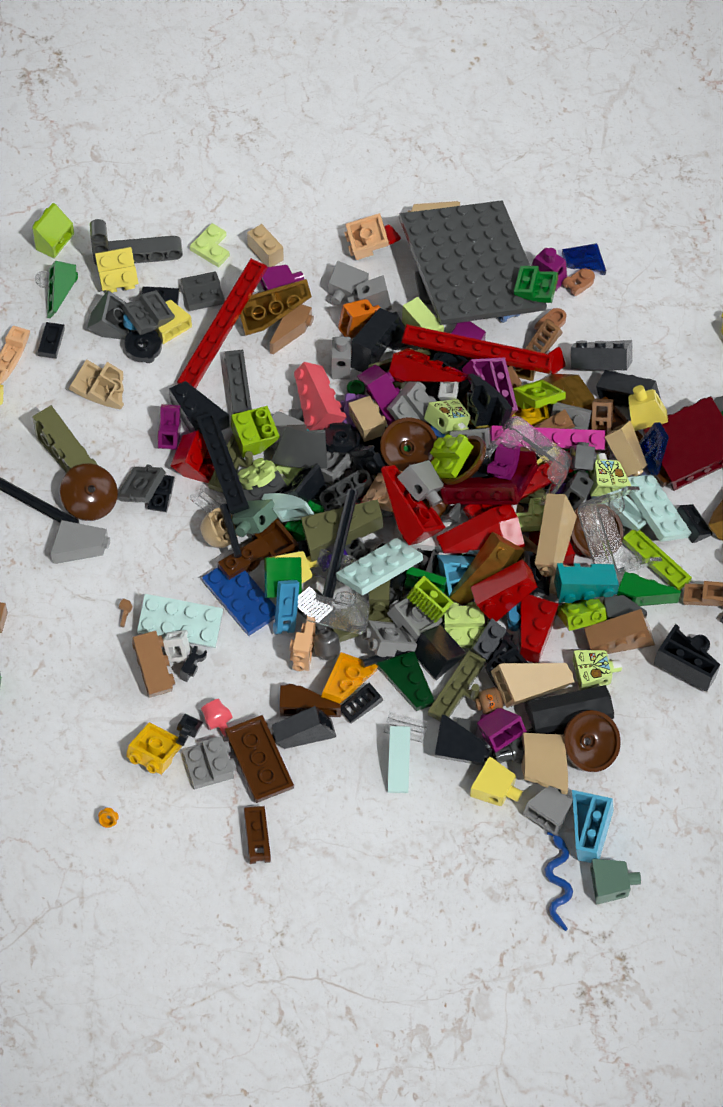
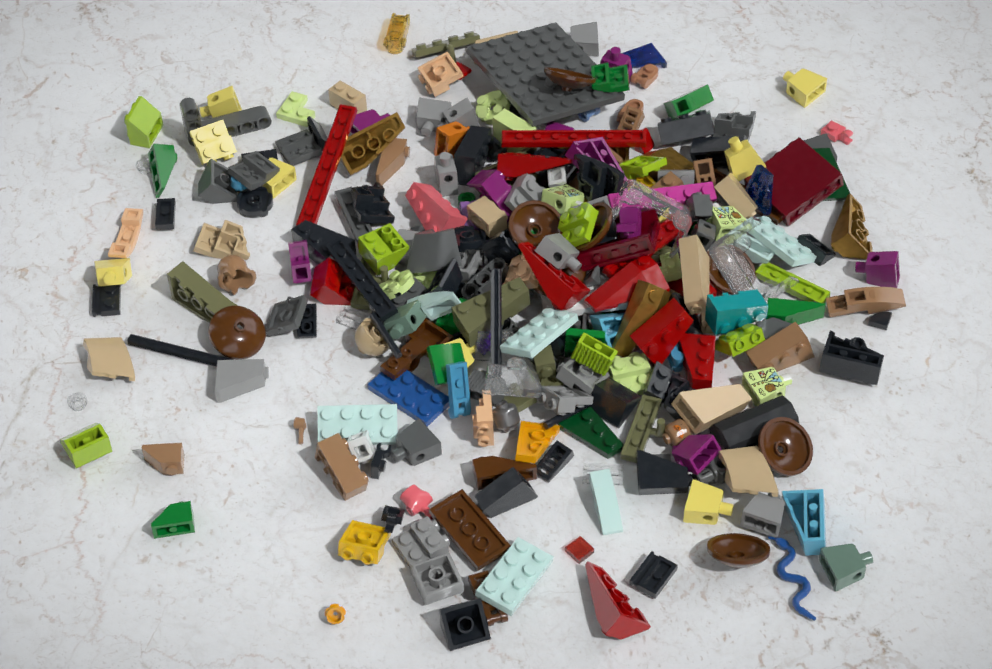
camera: 10 degrees left, 10 degrees down
(101, 426) = (234, 274): none -> medium nougat hair
(136, 225) = (221, 103): none -> light yellow torso
(205, 794) = (448, 582): none -> light grey brick
(226, 277) = (317, 131): none -> black slope
(227, 858) = (464, 624): none -> black slope
(232, 654) = (416, 444): none -> dark grey torso
(257, 375) = (371, 204): none -> black slope
(288, 818) = (514, 576): none -> light aqua plate
(336, 176) = (397, 33): none -> clear yellow piece
(360, 803) = (579, 549): none -> clear red tile
(373, 872) = (612, 606): none -> red wedge
(383, 201) = (449, 45): none -> olive plate
(403, 281) = (488, 100): none -> yellowish green plate
(423, 847) = (653, 574): none -> black plate
(491, 277) = (569, 79): none -> reddish brown dish
(511, 841) = (738, 550): none -> reddish brown dish
(529, 224) = (586, 37): none -> light grey torso
(614, 324) = (688, 102): none -> green slope
(653, 362) = (734, 124): none -> dark grey slope

